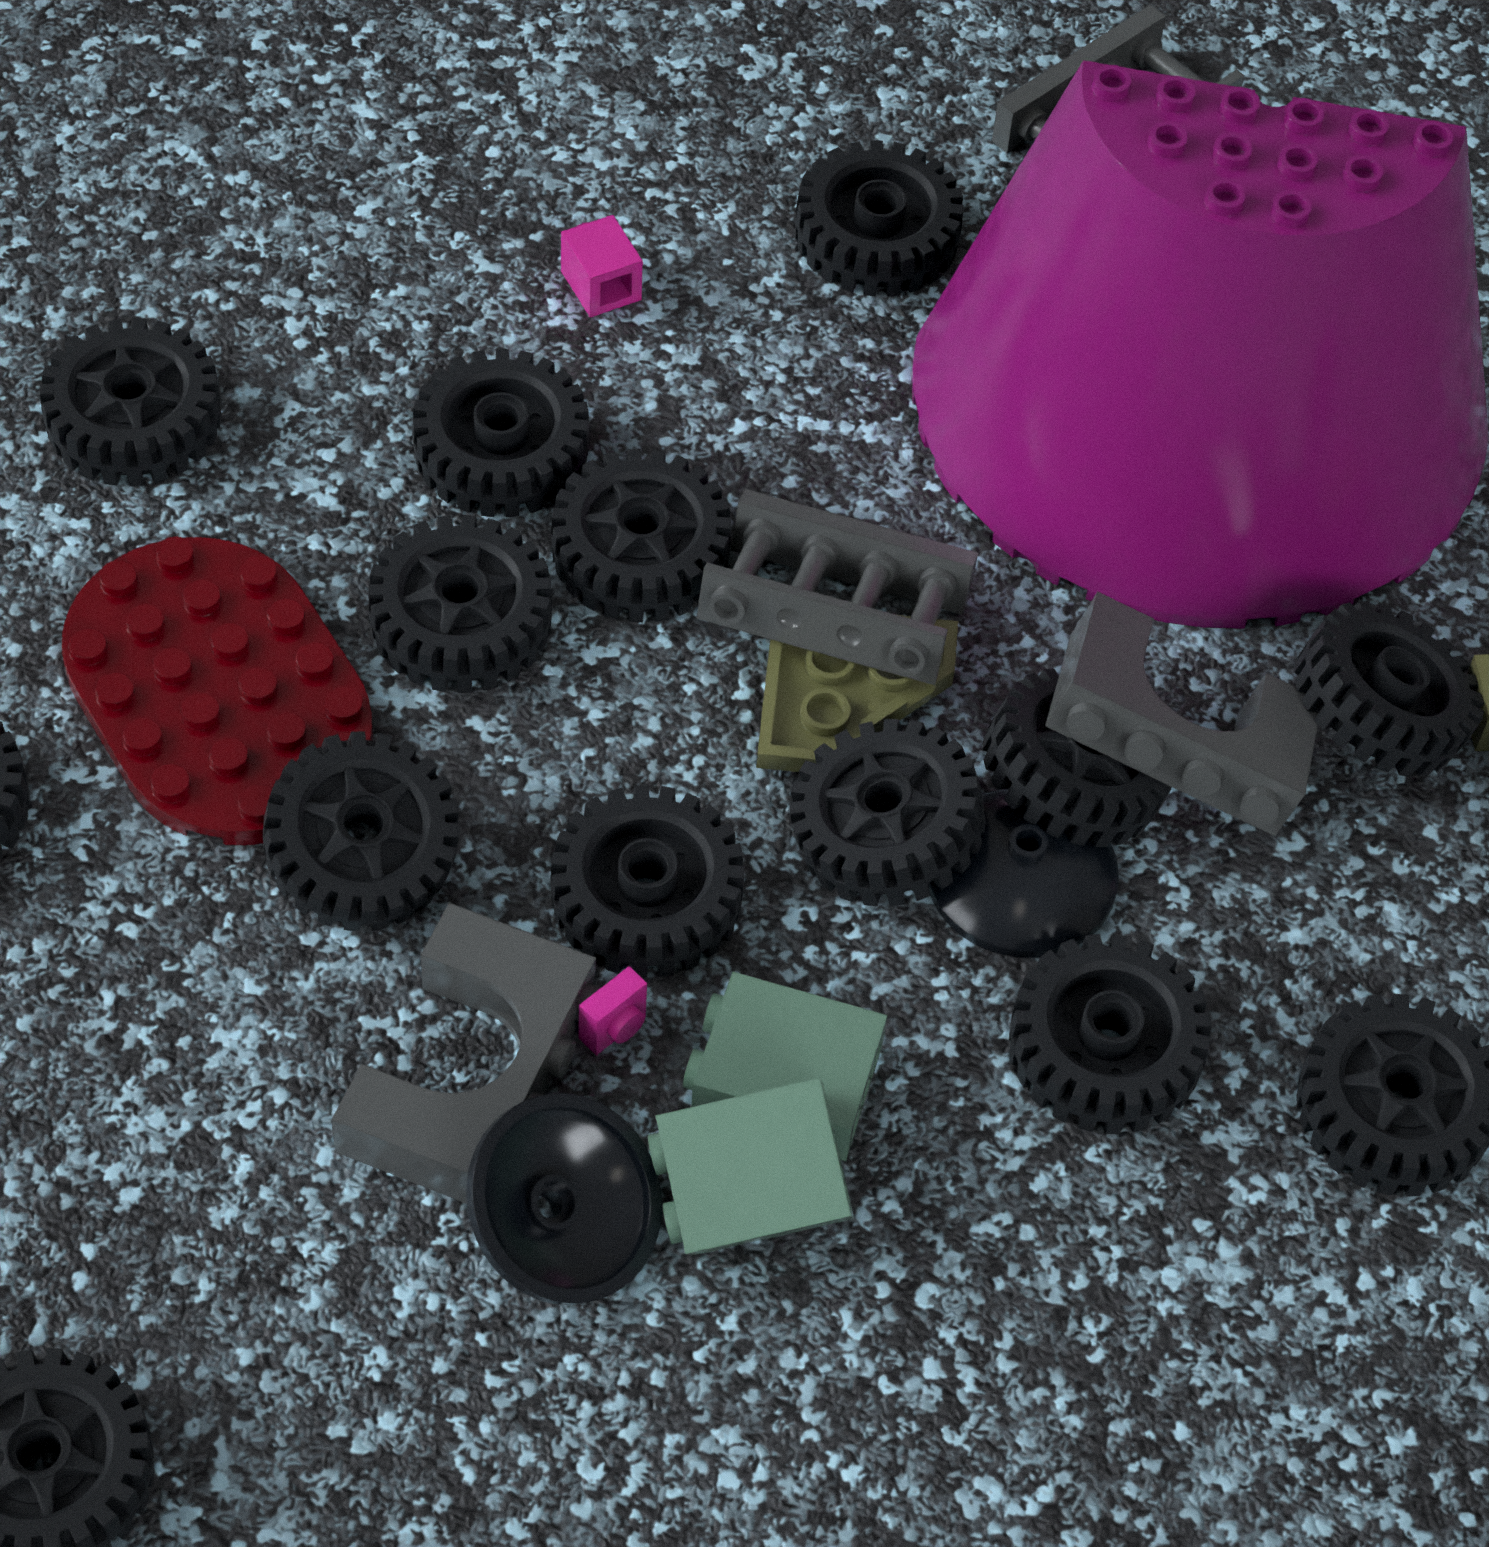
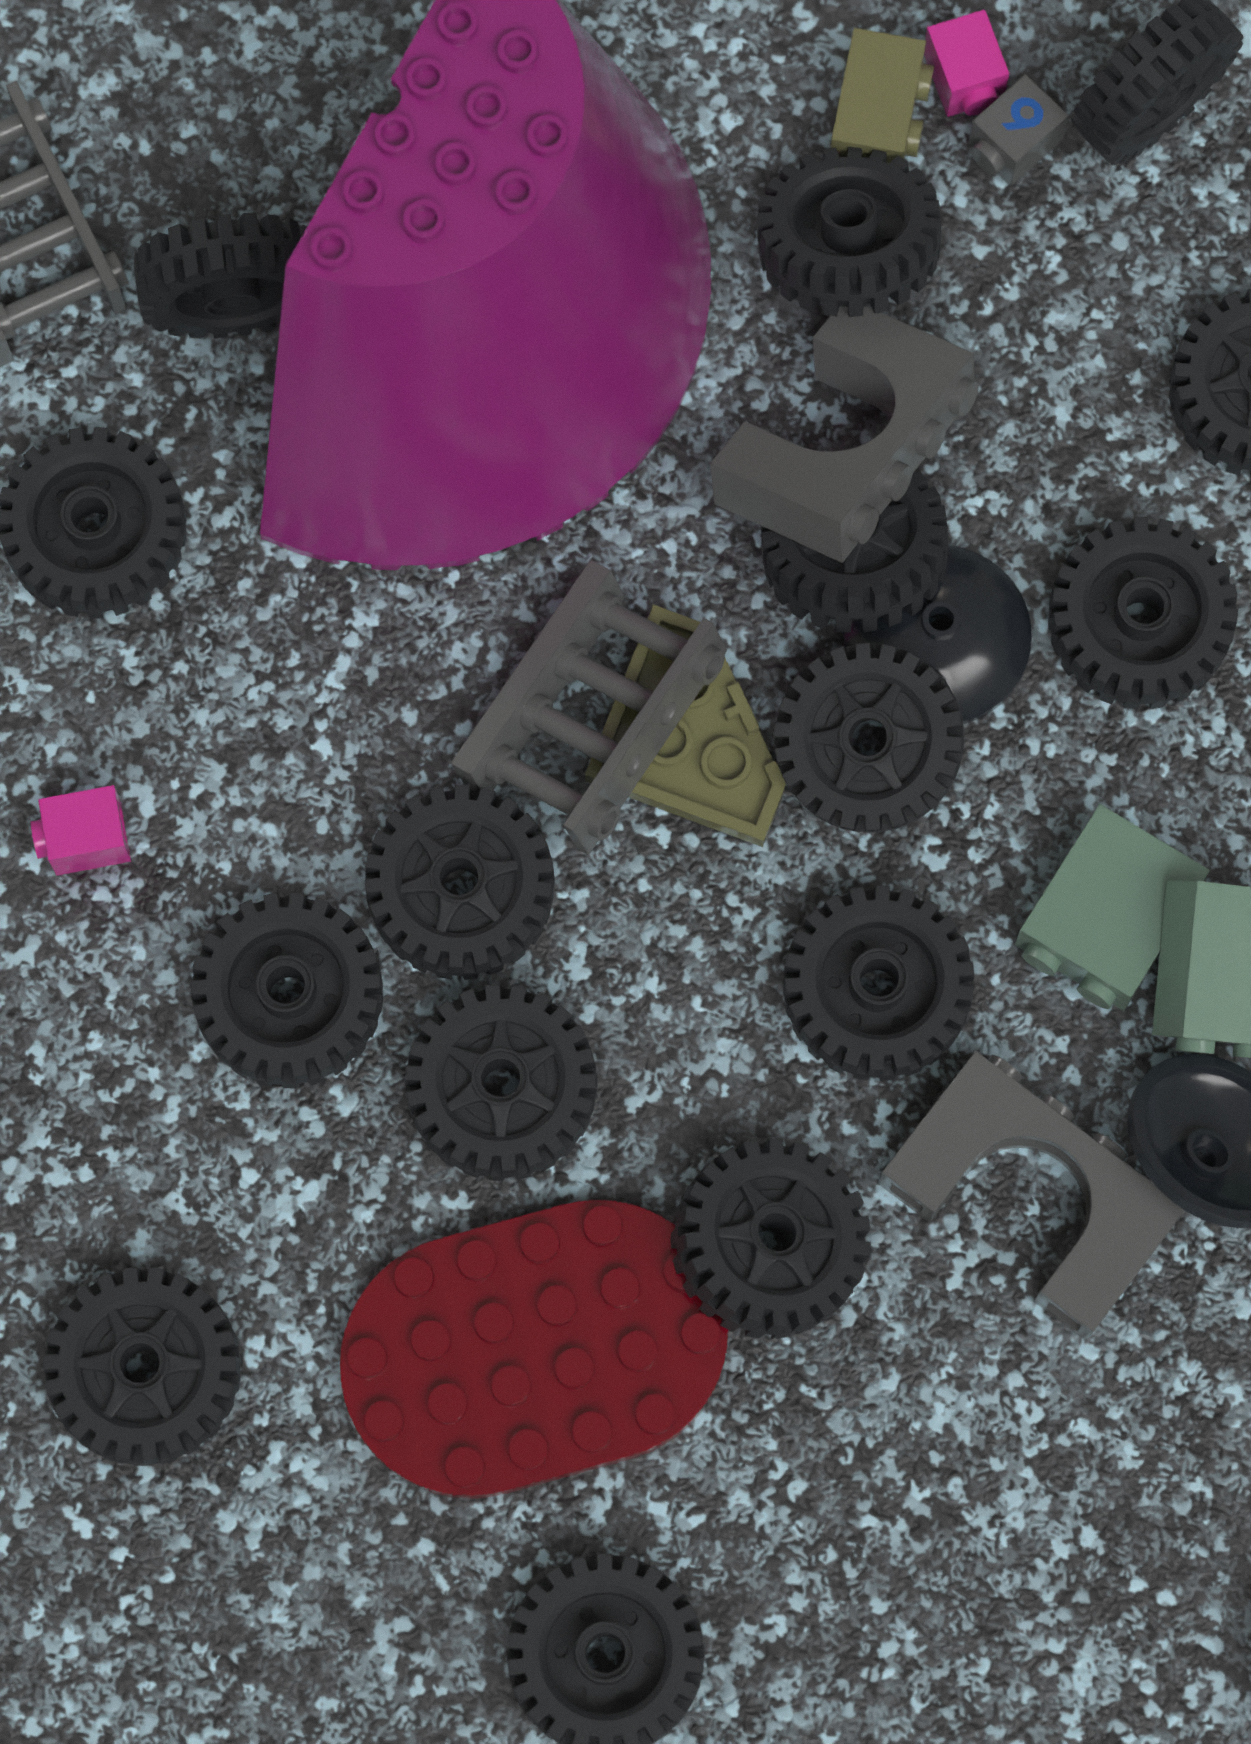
camera: 70 degrees left, 20 degrees up
(613, 1011) = (1020, 1047): dark pink plate -> none

